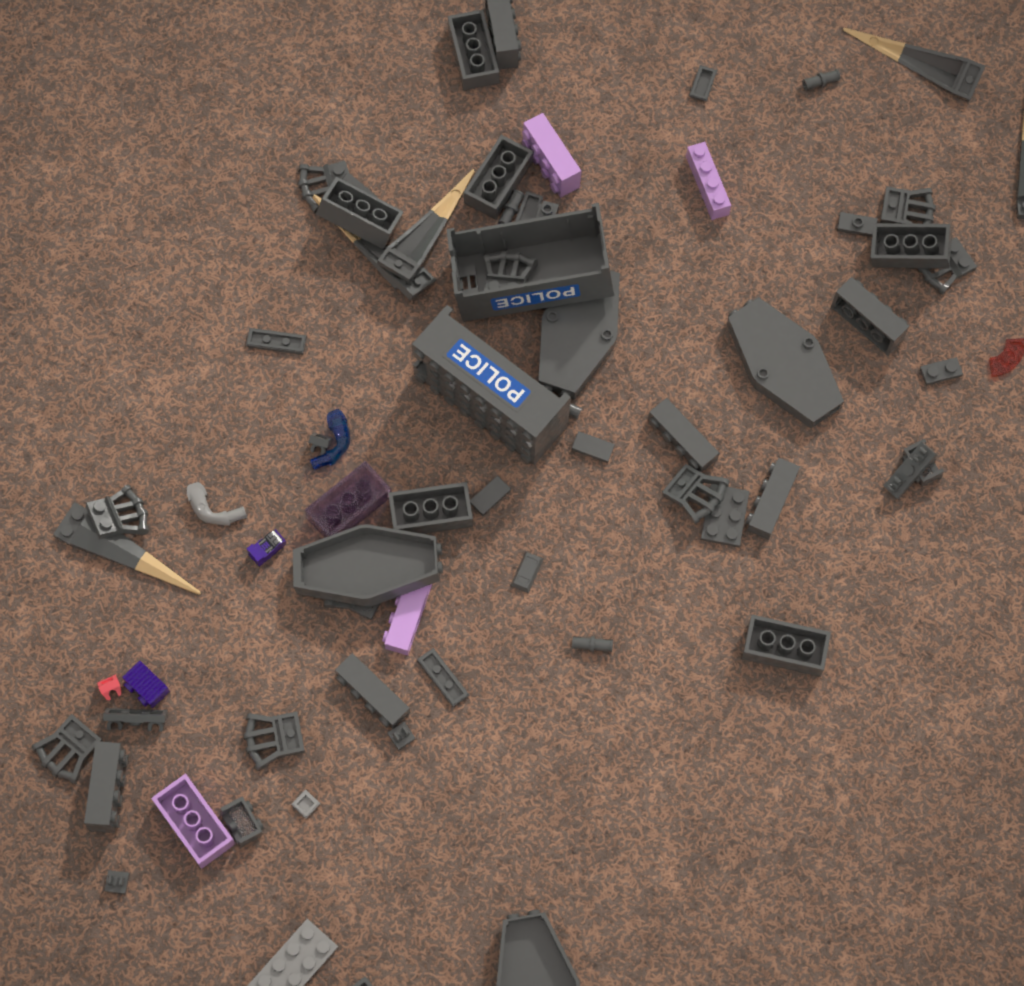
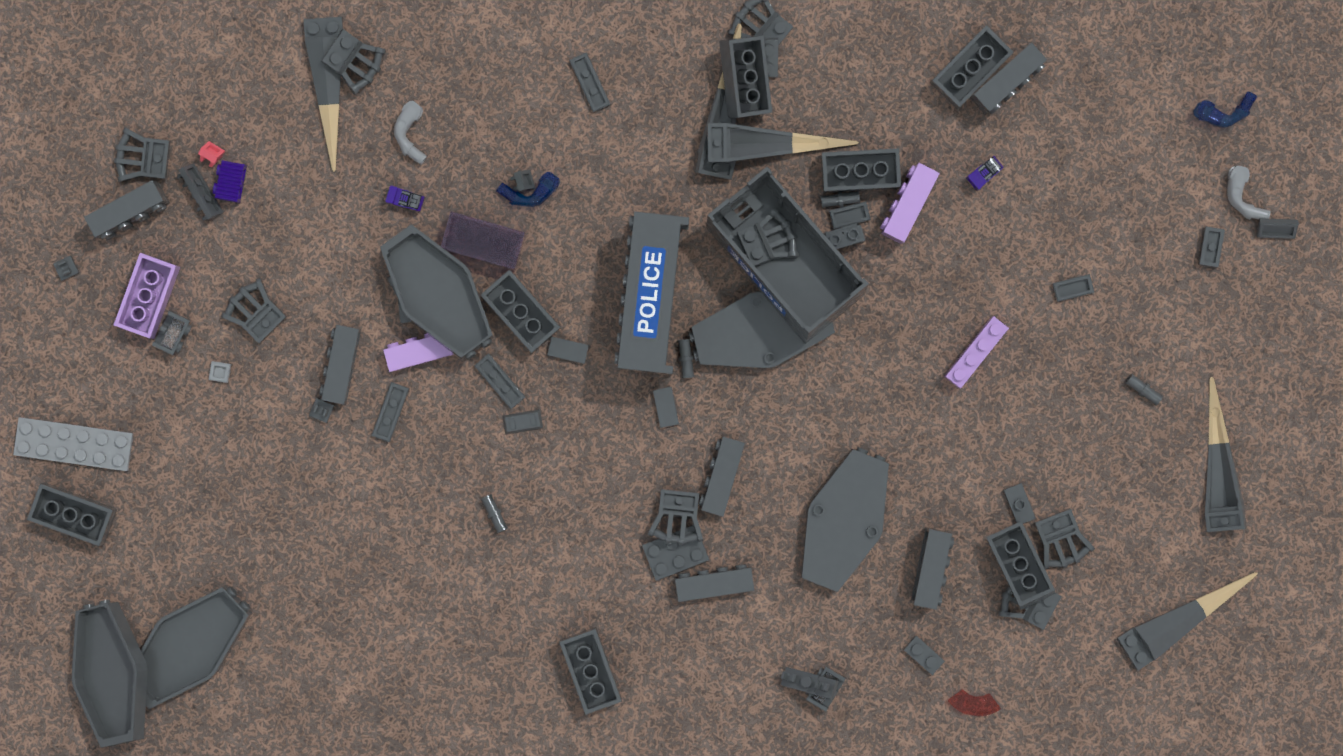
camera: 65 degrees right, 20 degrees up
(478, 568) = (499, 381): none -> dark grey tile
(565, 92) = (984, 173): none -> leg

